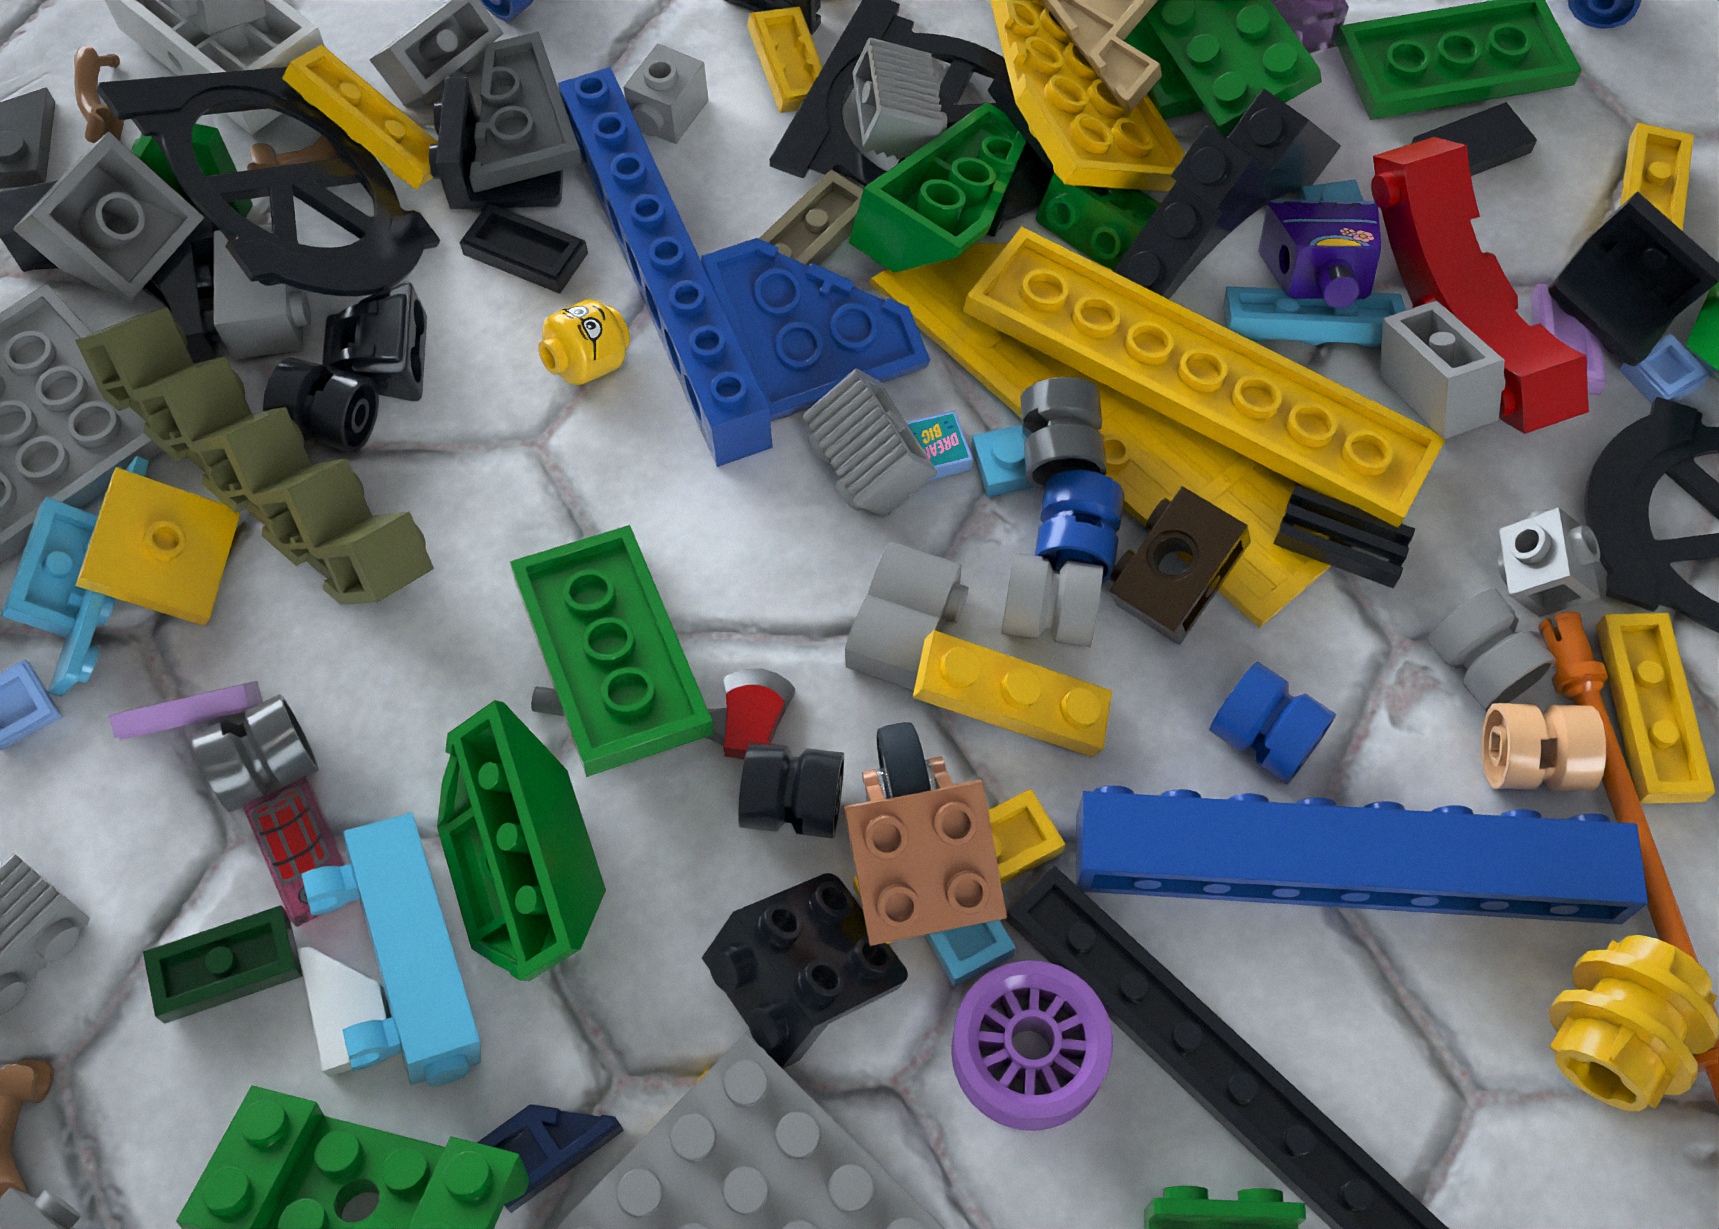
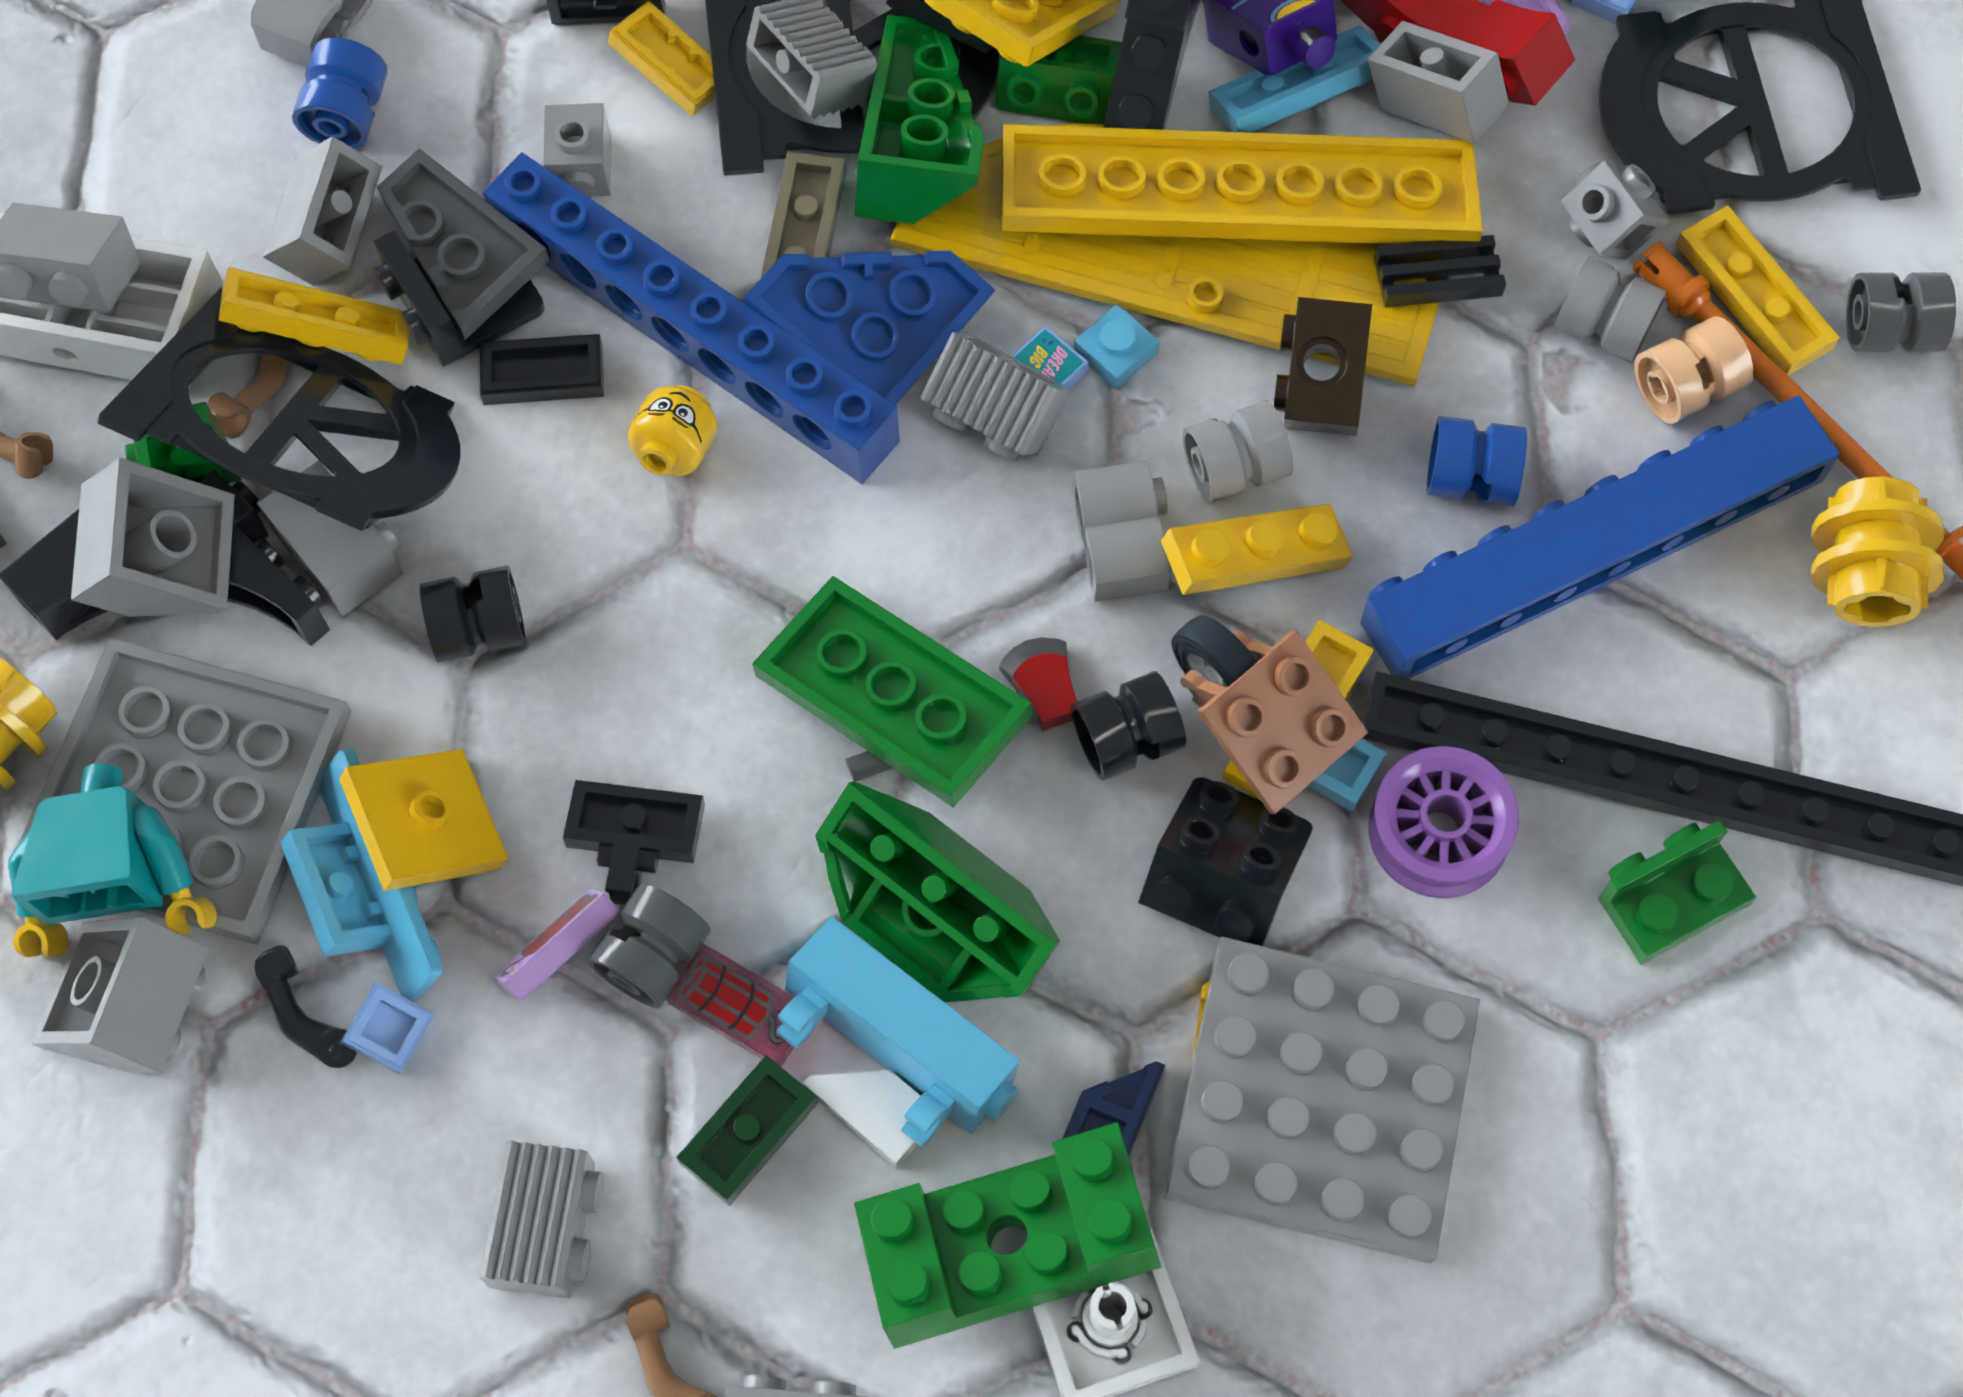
camera: 30 degrees left, 5 degrees up
(255, 459) = (453, 693): olive brick -> none
(319, 650) = (632, 830): none -> black hinge
(386, 338) = (484, 522): black piece -> none
(1061, 429) = (1158, 294): dark grey wheel -> none
(1080, 520) = (1218, 370): blue wheel -> none

